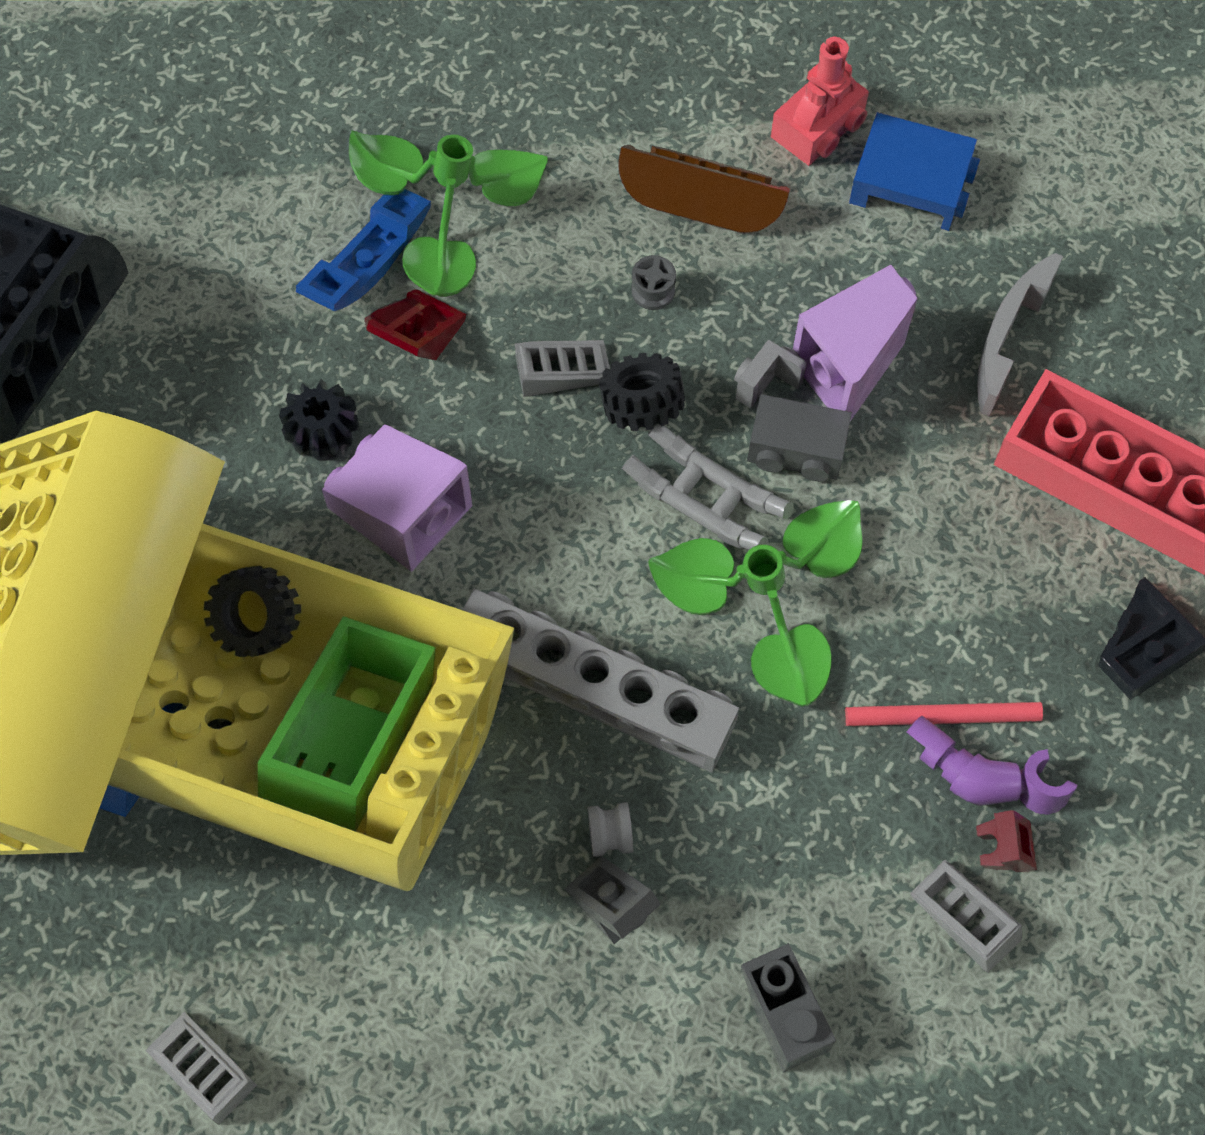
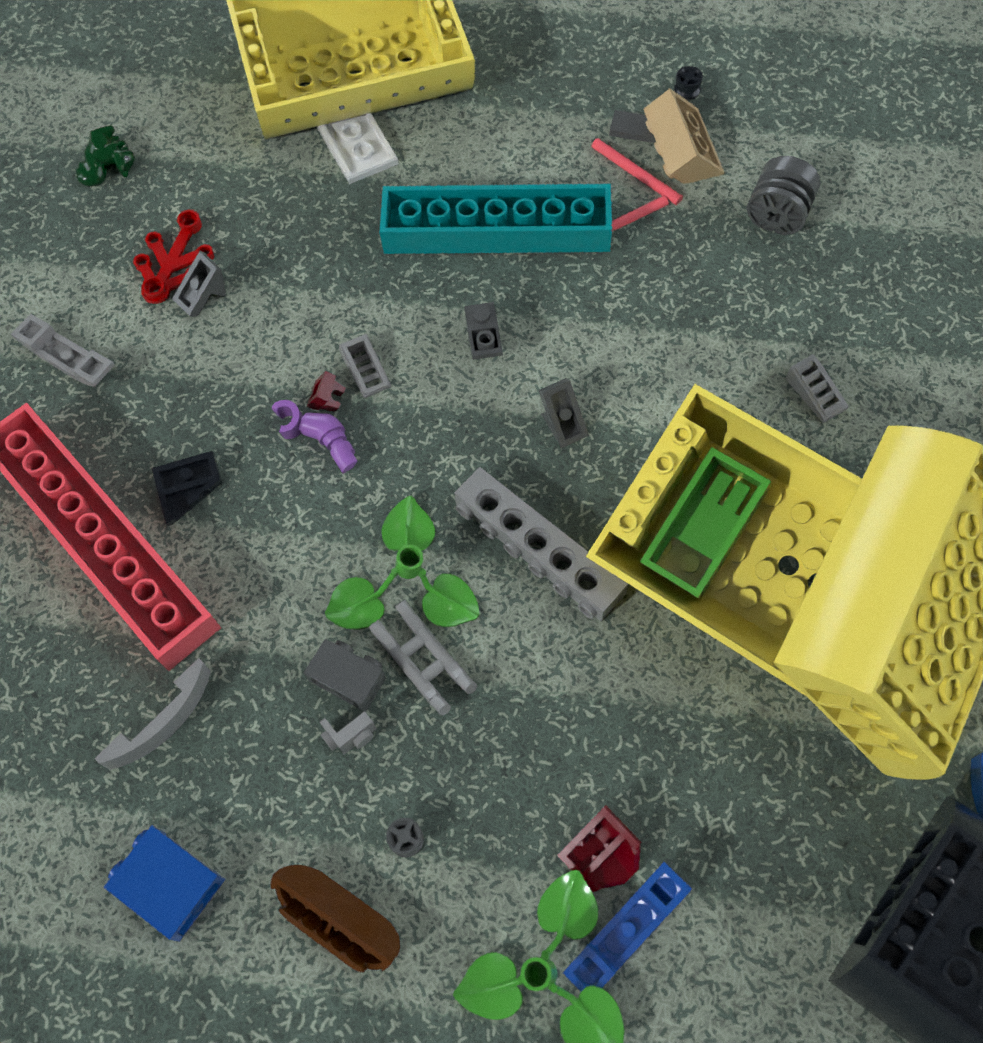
camera: 160 degrees left, 0 degrees up
(226, 618) = (759, 619): black tyre -> none
(309, 433) = (682, 795): black gear -> none
(399, 494) = (642, 700): lavender slope -> none
(552, 381) = (507, 800): light grey slope -> none
(610, 829) = (553, 453): light grey wheel -> none
(642, 391) = (442, 757): black tyre -> none
(823, 108) = (213, 964): coral brick -> none
(855, 337) = (274, 727): lavender slope -> none
(944, 713) = (328, 476): coral bar -> none

